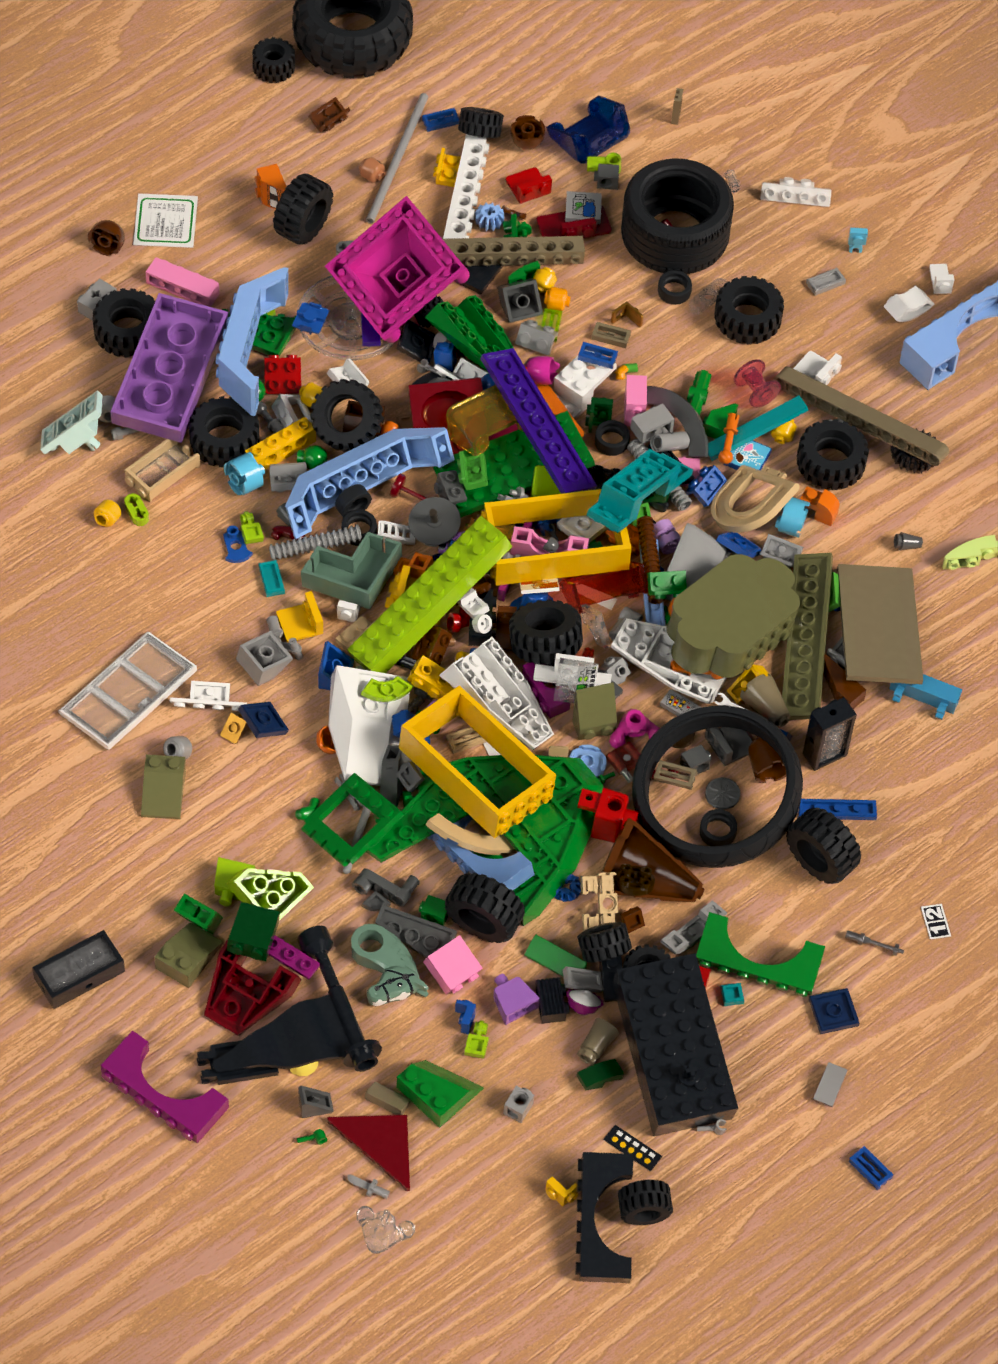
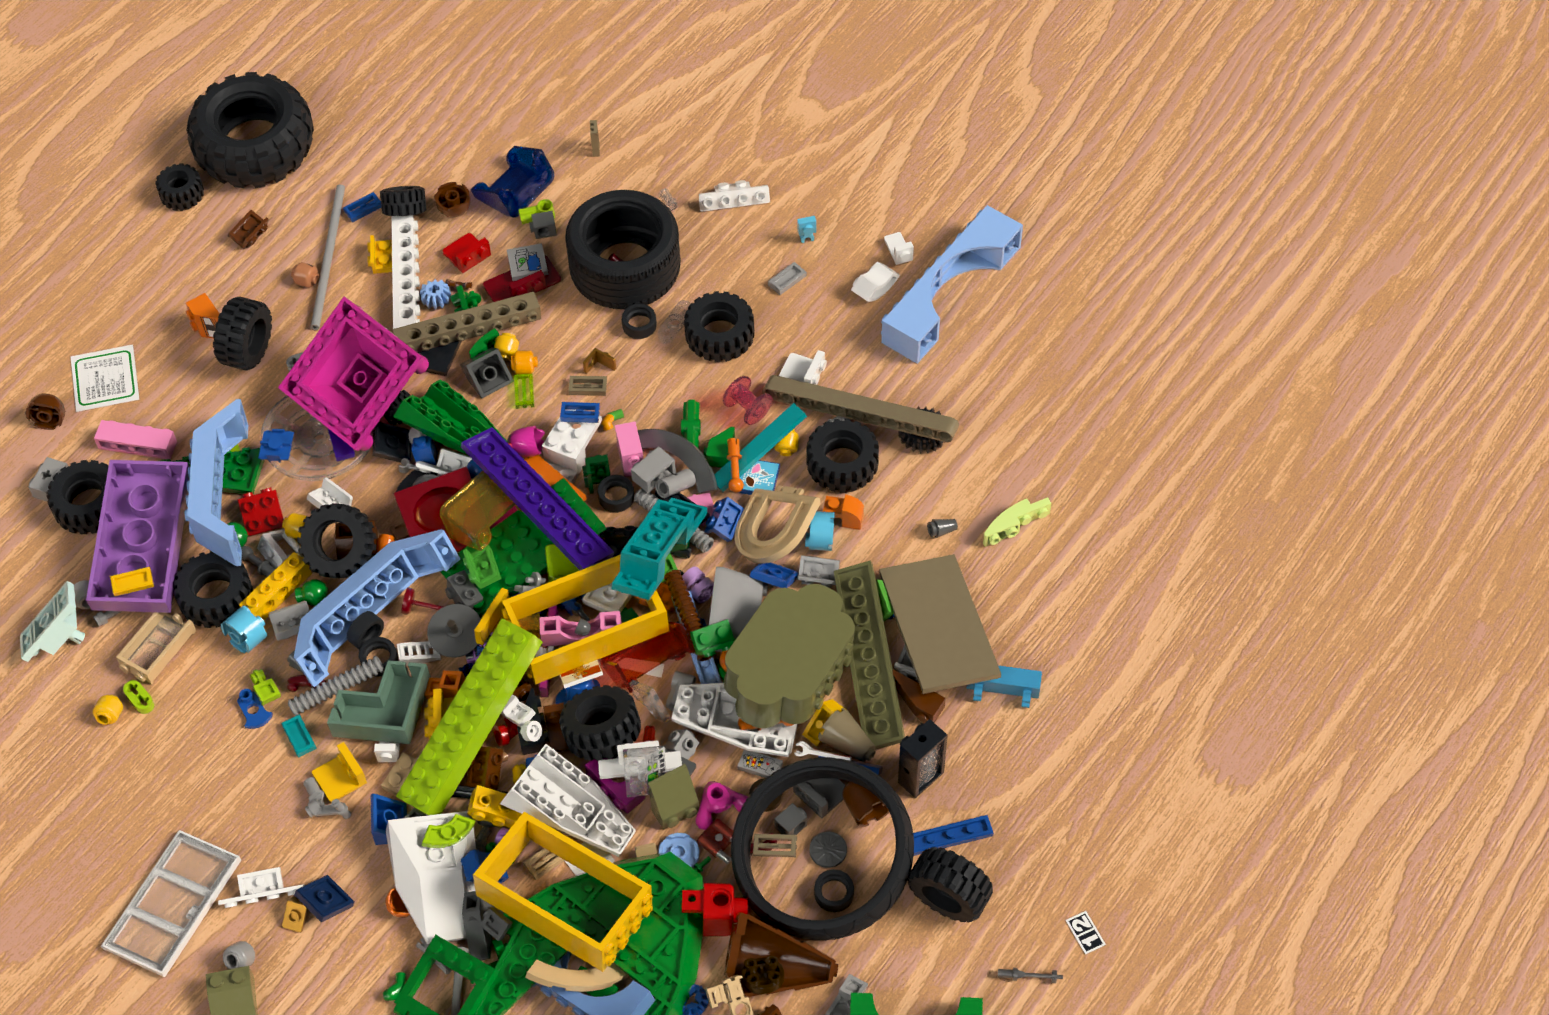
camera: 10 degrees left, 0 degrees up
(155, 405) = (131, 581): none -> yellow tile
(263, 658) = (309, 828): light grey slope -> none
(461, 524) = (490, 617): none -> yellow tile
(536, 337) = (512, 406): light grey bracket -> none

